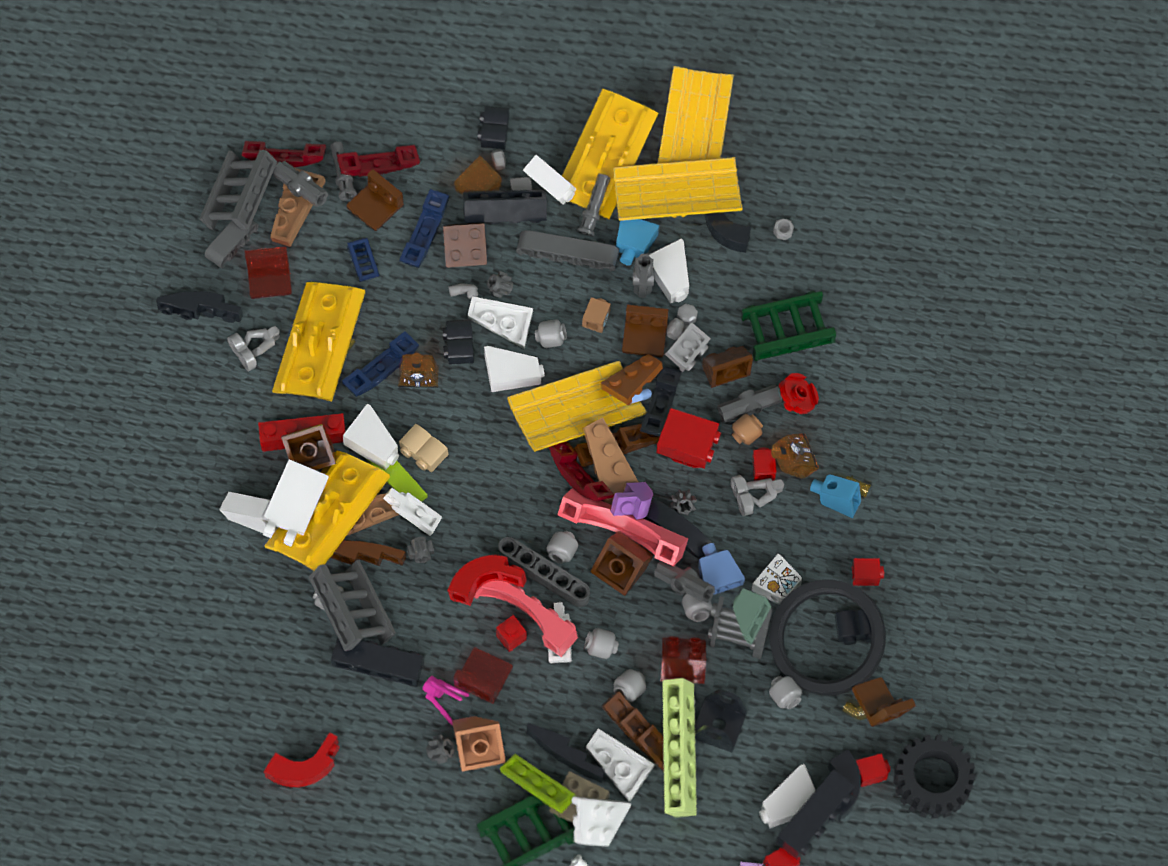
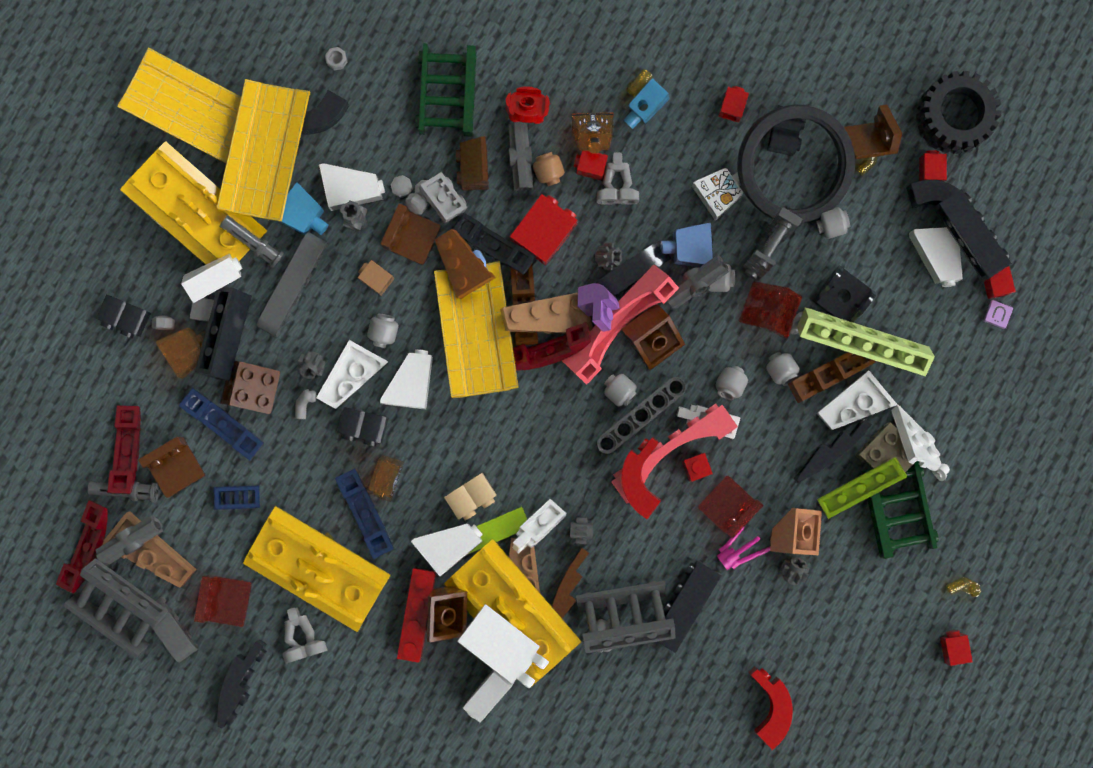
camera: 75 degrees left, 20 degrees up
(750, 613) = (785, 230): sand green slope -> none

